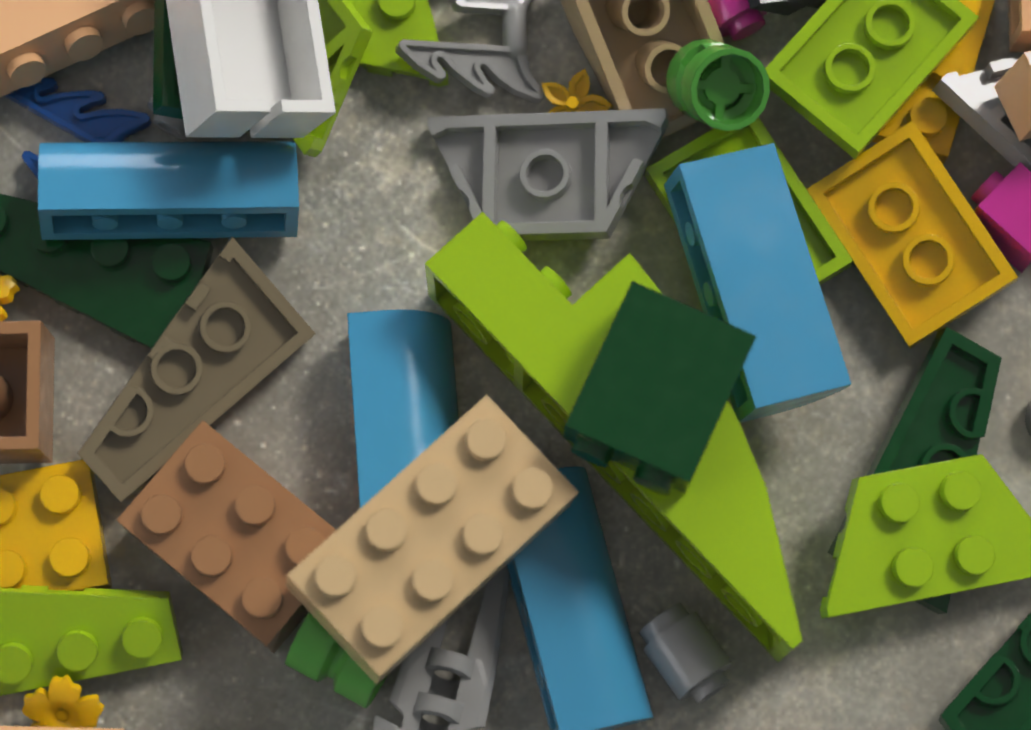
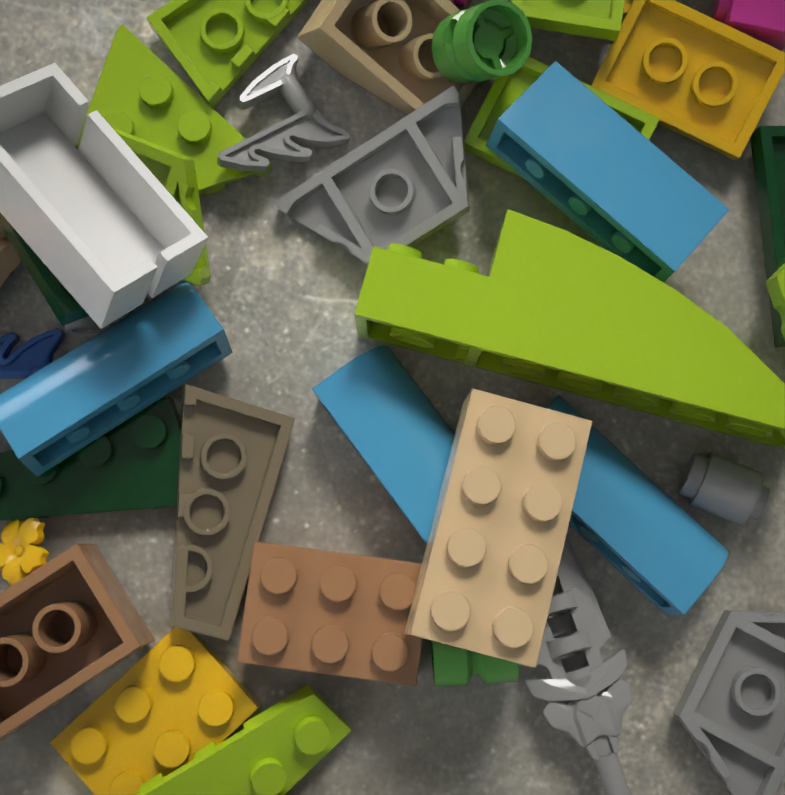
camera: 30 degrees left, 5 degrees up
(576, 97) = (374, 120): yellow plant -> none
(657, 389) = (606, 301): dark green brick -> none

